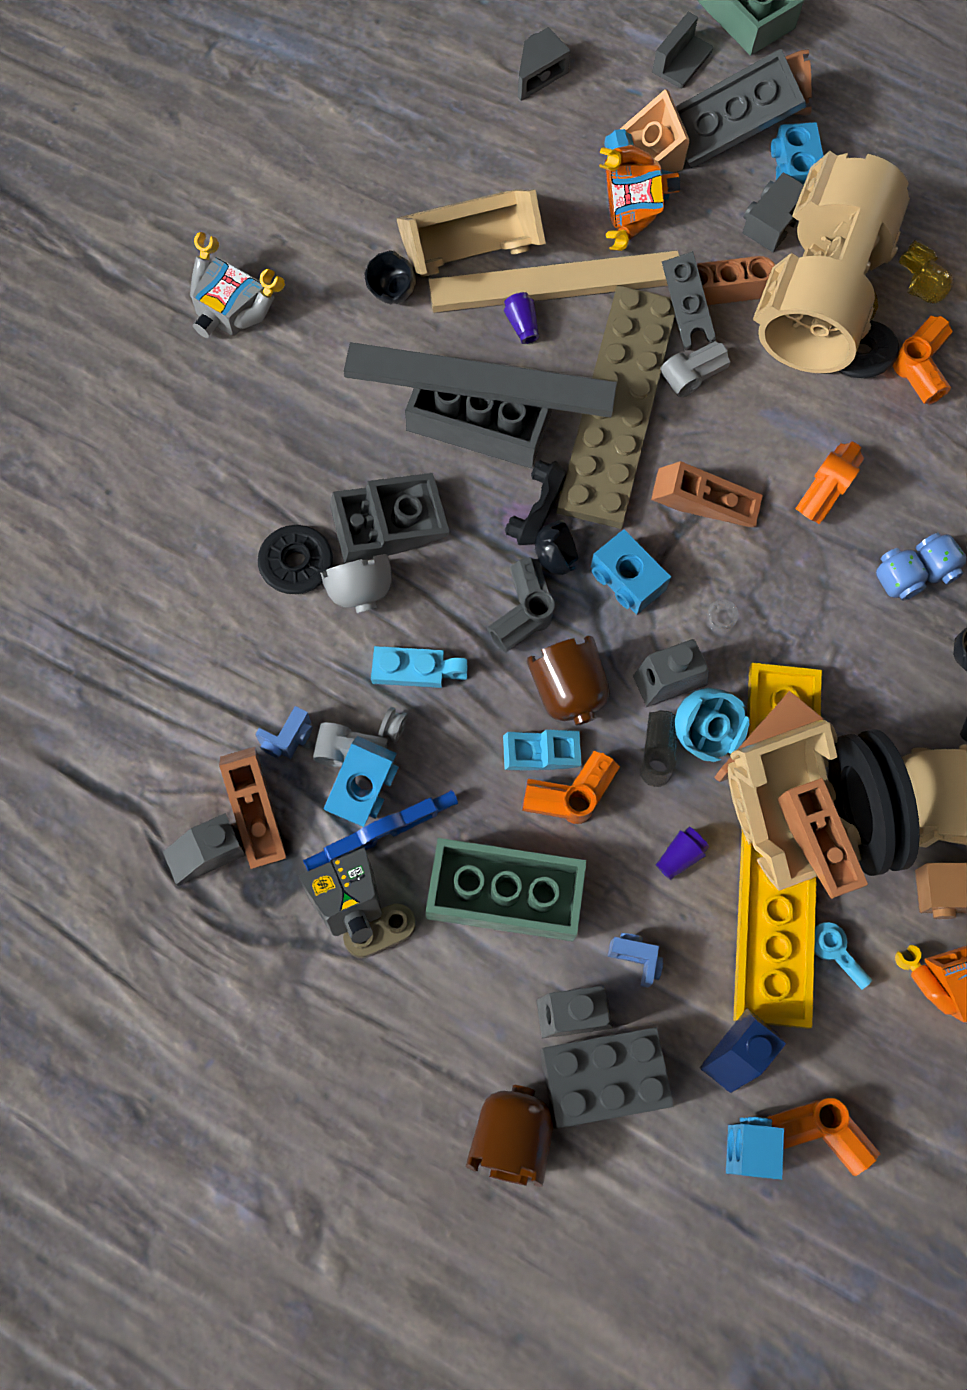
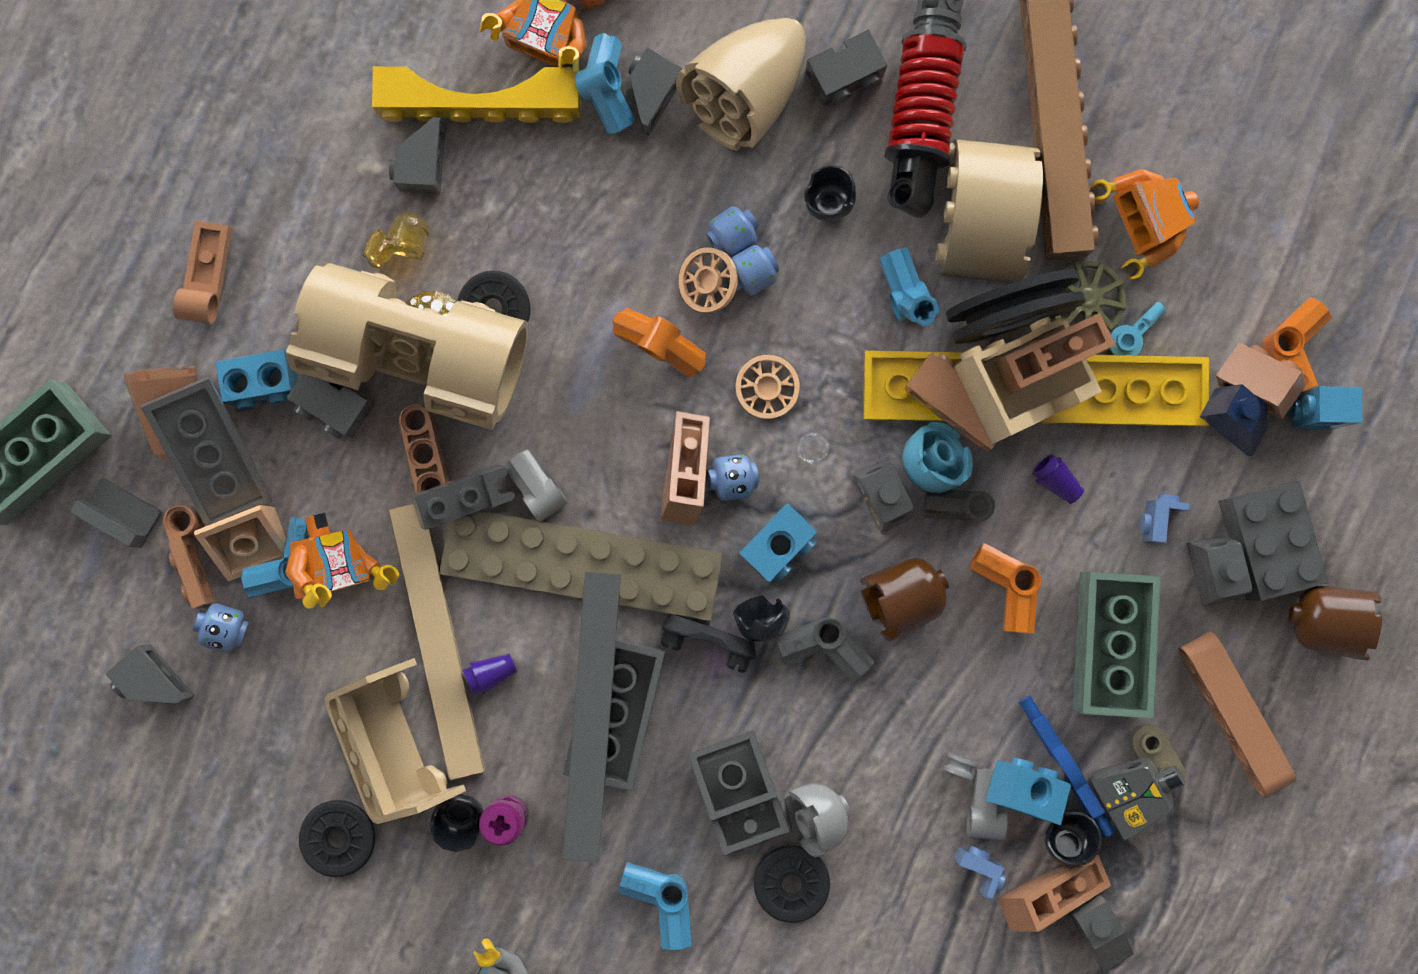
camera: 90 degrees left, 15 degrees up
(305, 826) = (1073, 841): none -> black hair
(309, 434) = (673, 915): none -> dark azure piece
(386, 207) = (315, 844): none -> black wheel
(389, 309) = (493, 826): none -> magenta piece
(415, 667) = (896, 750): medium azure plate -> none
(416, 1019) = (1237, 714): none -> nougat beam
(542, 750) = (968, 618): medium azure slope -> none
(580, 116) = (220, 628): none -> medium blue head
(632, 98) = (185, 557): none -> nougat plate
(696, 536) = (732, 477): none -> medium blue head
(784, 580) = (767, 386): none -> light nougat wheel
(788, 1081) = (1269, 379): none -> nougat brick
(876, 907) = (1094, 296): none -> olive wheel
(891, 714) = (907, 293): none -> dark azure piece
(892, 128) = (204, 273): none -> nougat plate
(892, 531) = (708, 280): none -> light nougat wheel
(916, 362) = (485, 243): orange piece -> none

